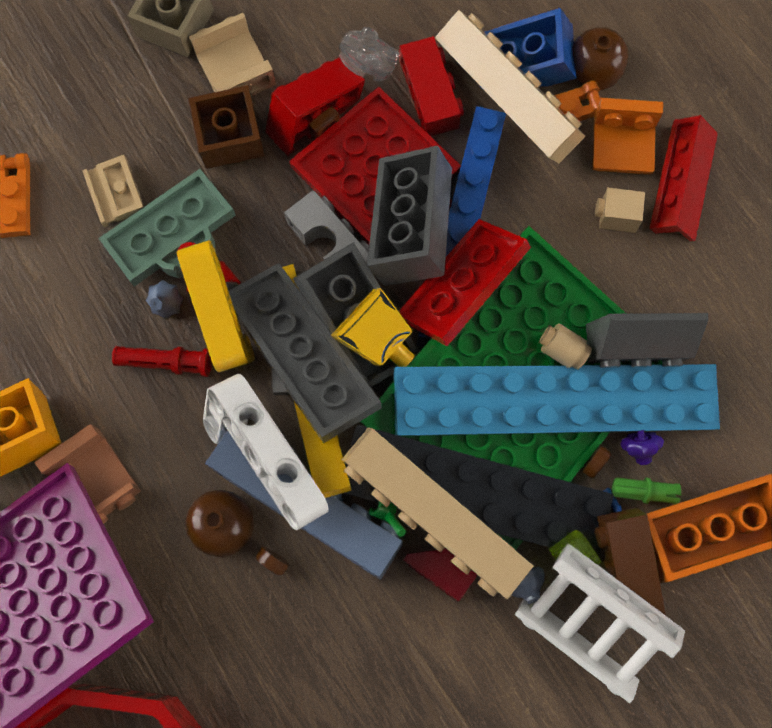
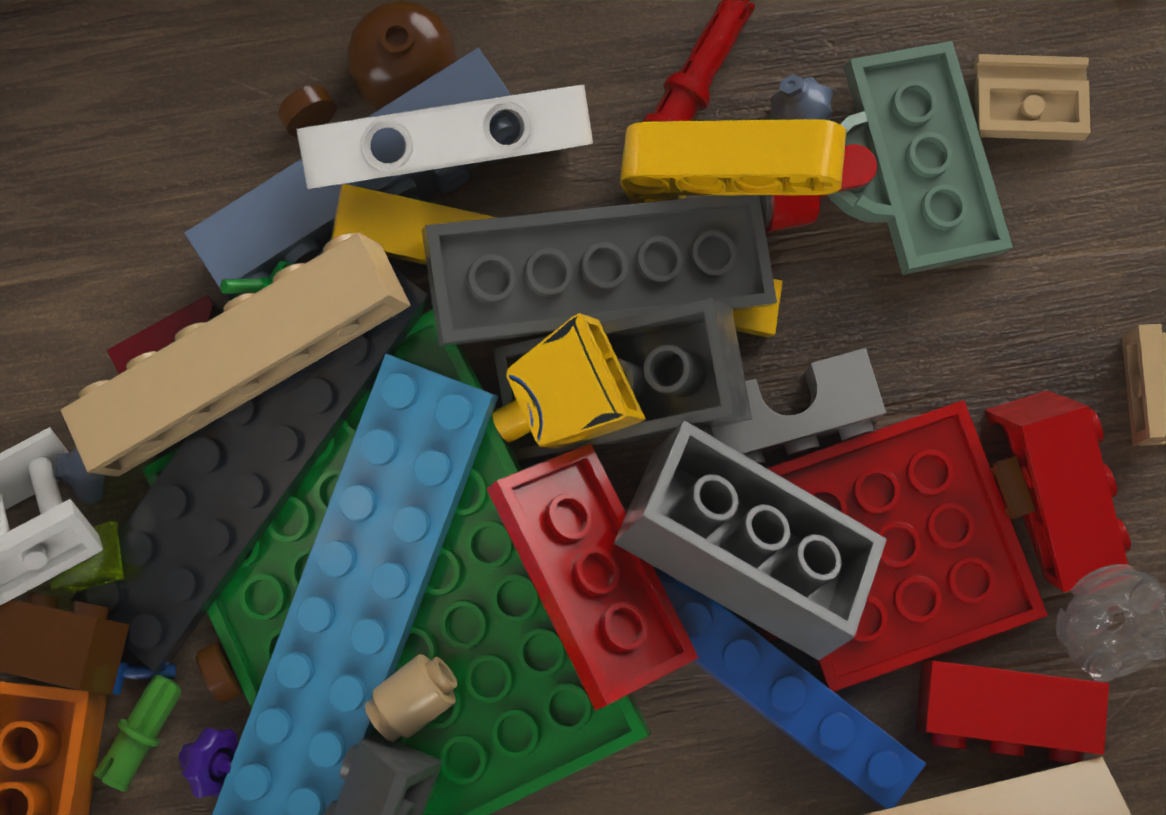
camera: 110 degrees right, 5 degrees up
(226, 127) = (1070, 317): reddish brown brick -> none

